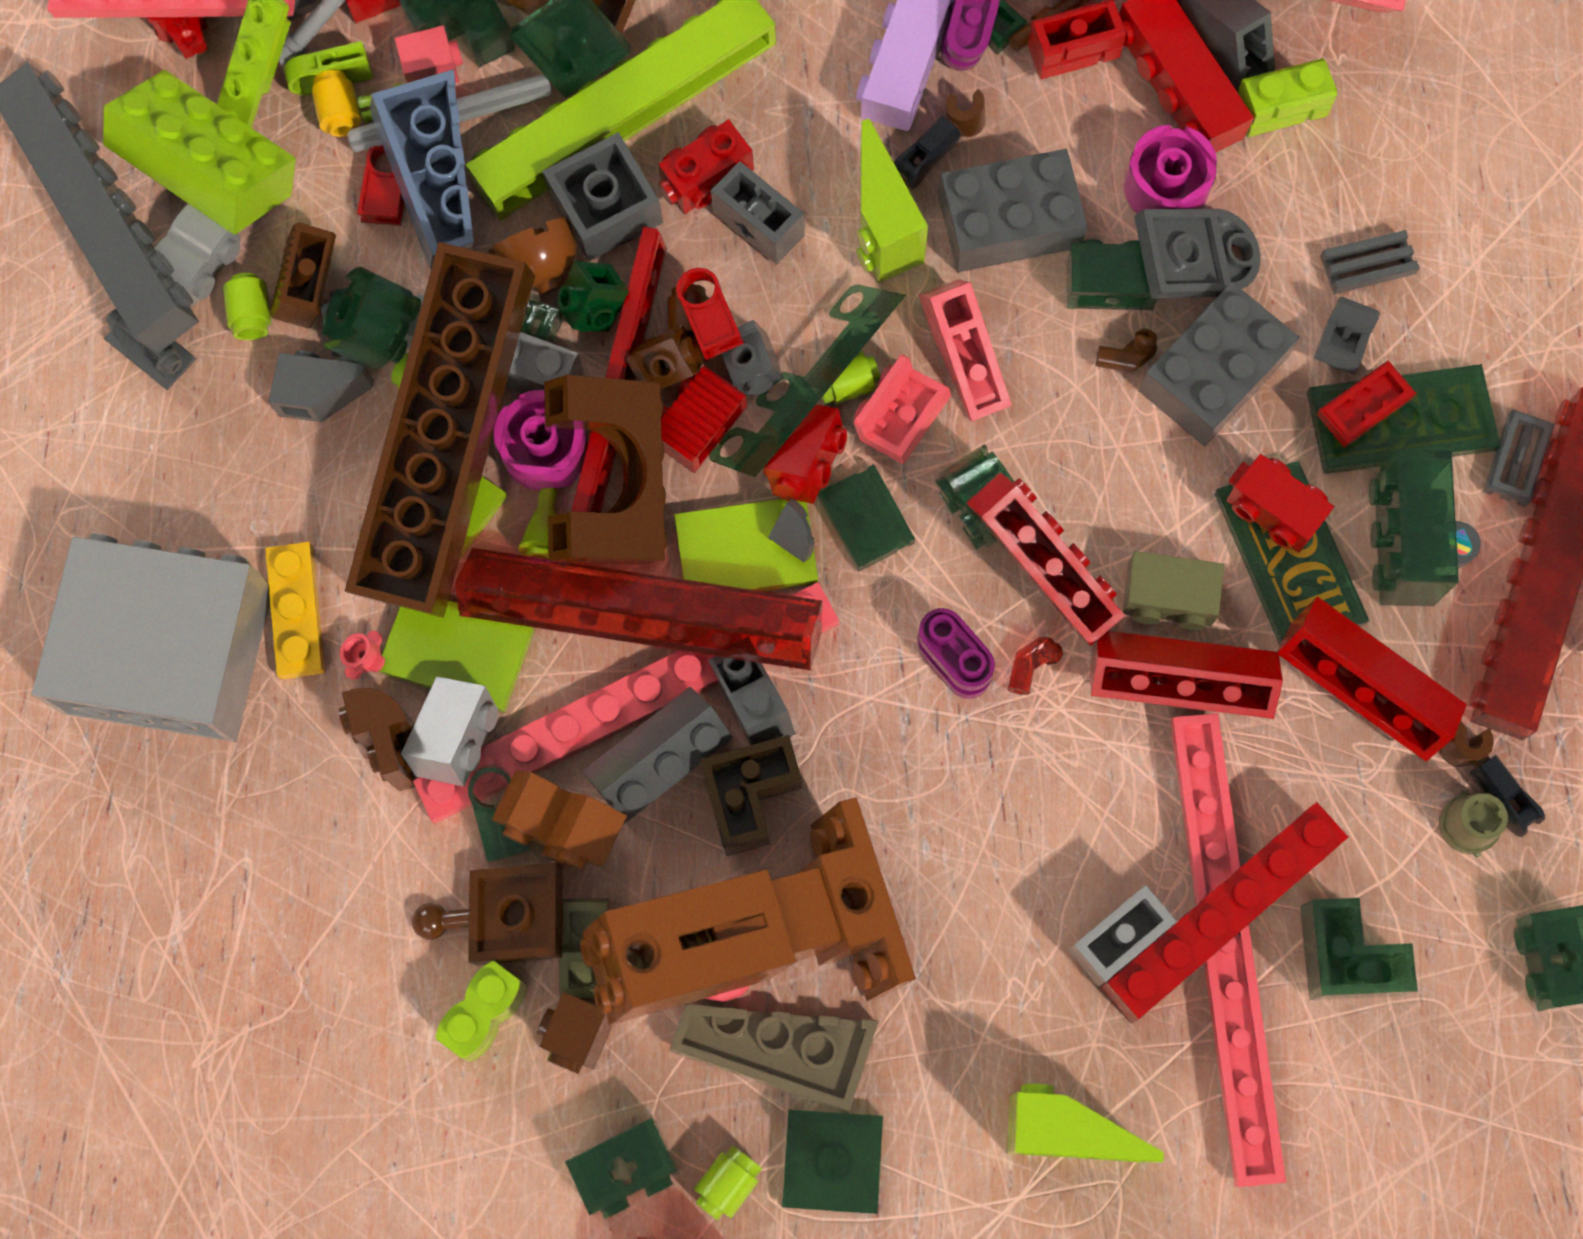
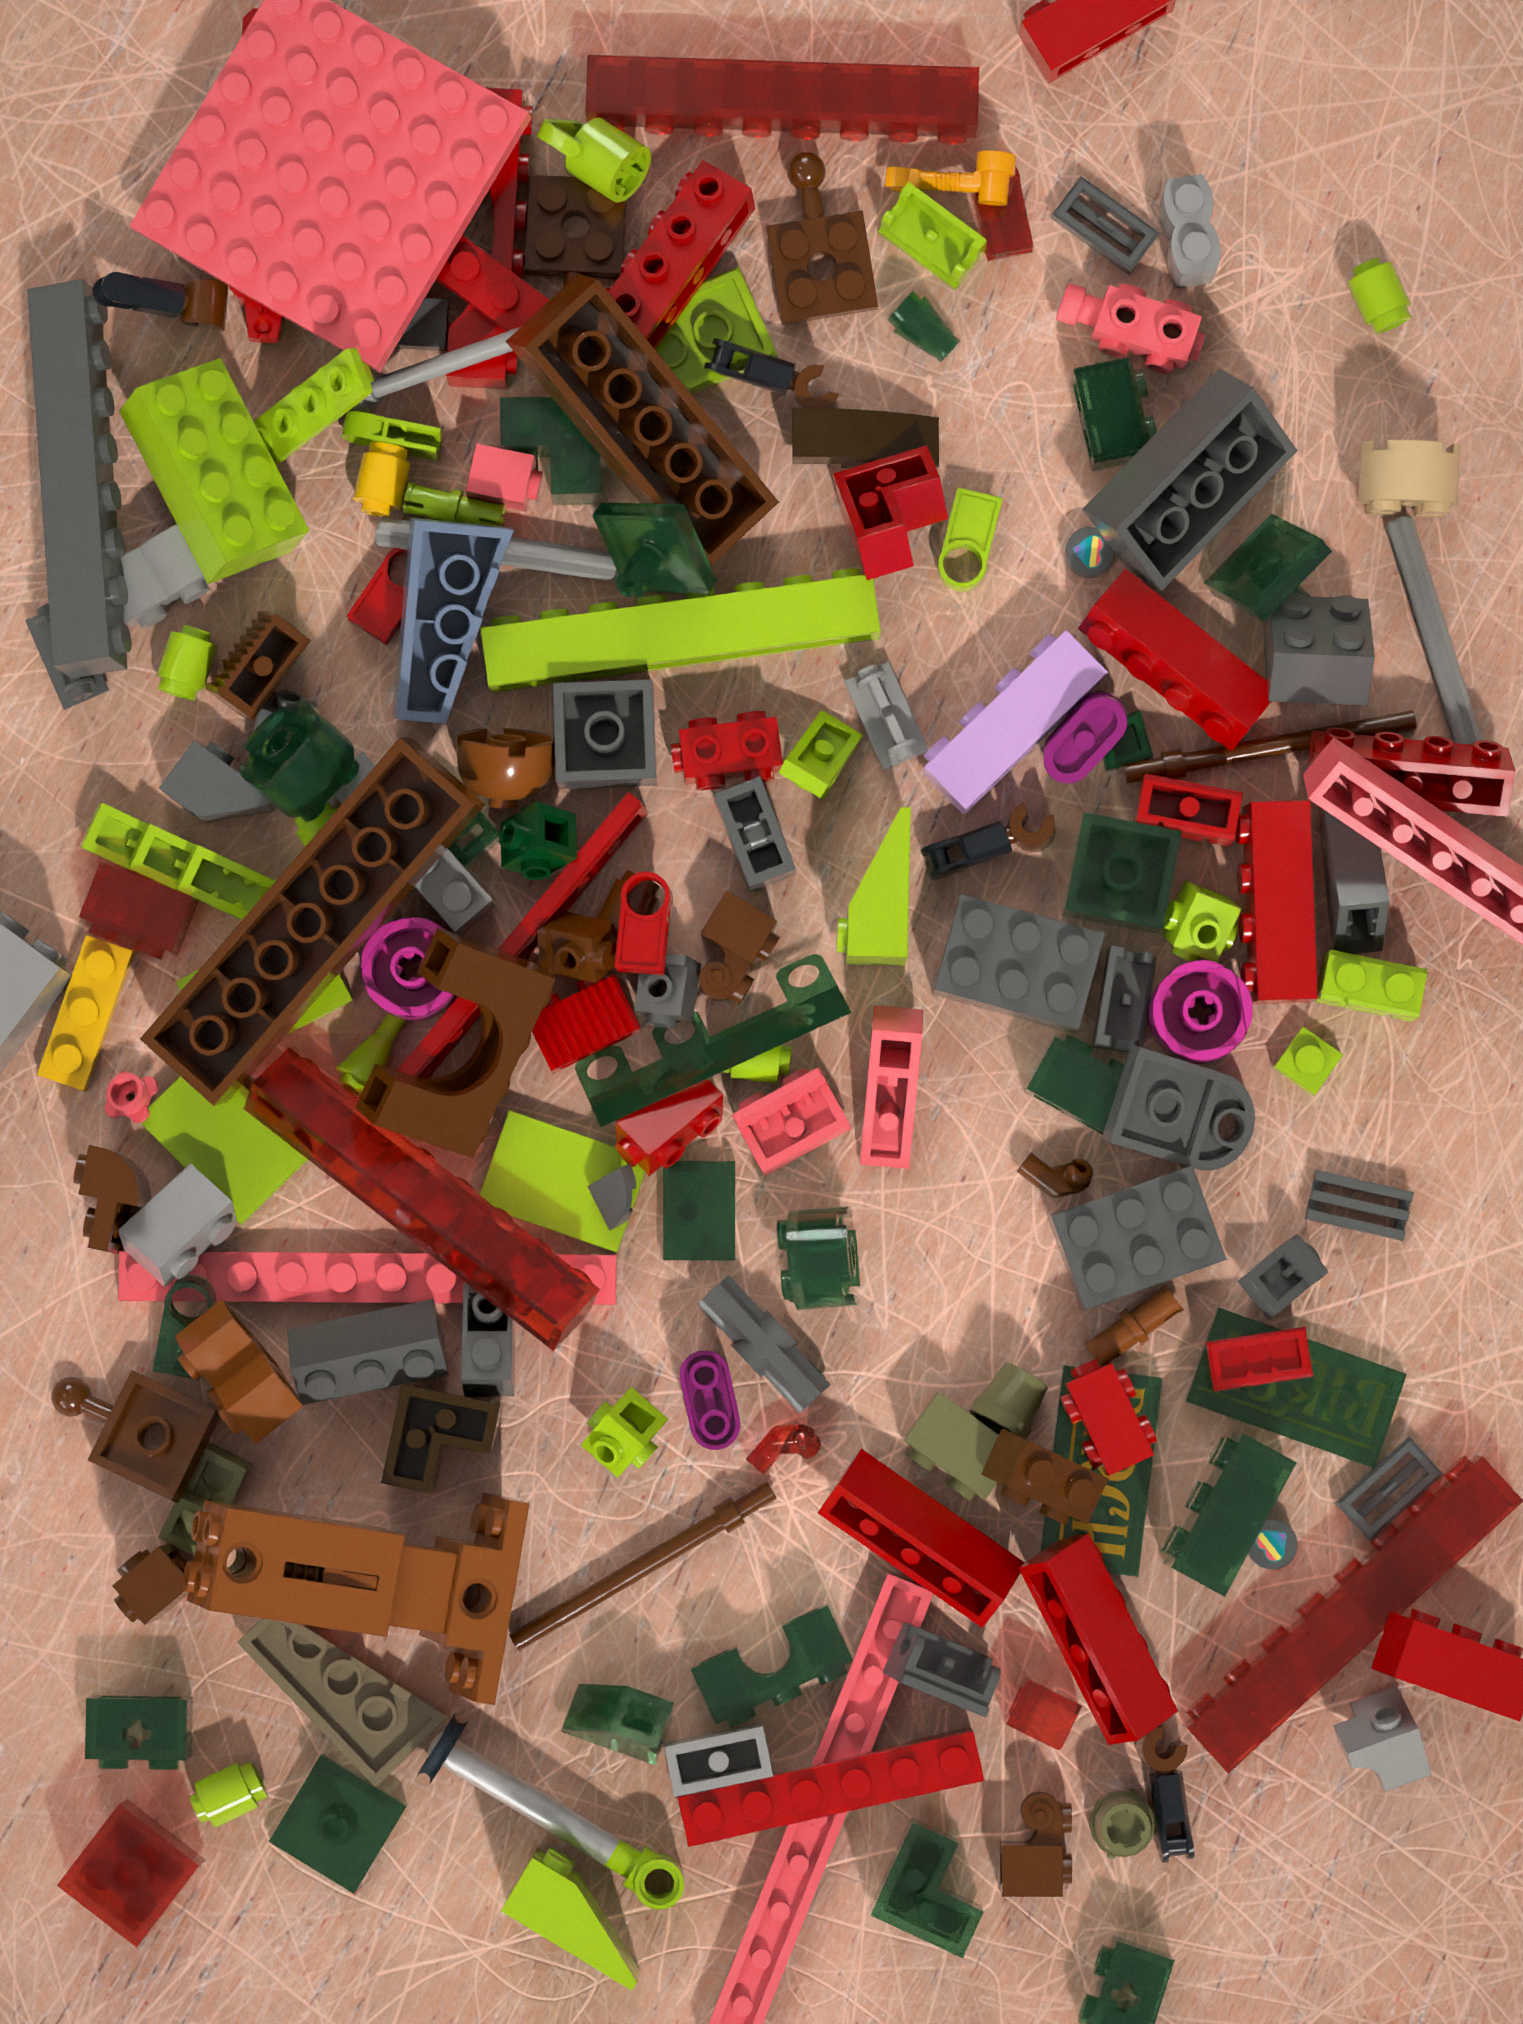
camera: 25 degrees right, 10 degrees up
(128, 44) = (195, 301): none -> black piece
(298, 507) = (137, 910): none -> clear red brick
(305, 459) = (174, 862): none -> lime slope
(474, 1022) = (87, 1508): lime brick -> none
(776, 142) = (821, 754): none -> lime slope
(785, 294) = (743, 936): none -> reddish brown brick
(810, 89) = (886, 715): none -> light grey hinge
(900, 713) = (624, 1432): none -> lime brick
(973, 590) = (764, 1344): none -> dark grey piece
(1011, 1057) = (553, 1816): none -> flat silver piece
(1018, 742) = (727, 1516): none -> reddish brown bar
(1023, 946) = (620, 1719): none -> clear green slope
(1040, 552) = (839, 1360): red brick -> none
(1053, 104) = (1121, 873): none -> clear green brick
(1104, 199) = (1124, 999): none -> dark grey hinge
(1131, 111) = (1200, 923): none -> lime brick
(1147, 808) = (734, 1688): none -> clear green arch
(1194, 532) = (1010, 1401): none -> olive piece
(1255, 430) = (1134, 1326): none -> dark orange pin
(1257, 569) = (1047, 1477): none -> reddish brown brick
(1261, 771) = (943, 1669): none -> dark grey hinge
(1268, 179) = (1307, 1061): none -> lime plate
(1358, 763) = (1042, 1713): none -> clear red panel
(1427, 884) = (1038, 1864): none -> reddish brown brick

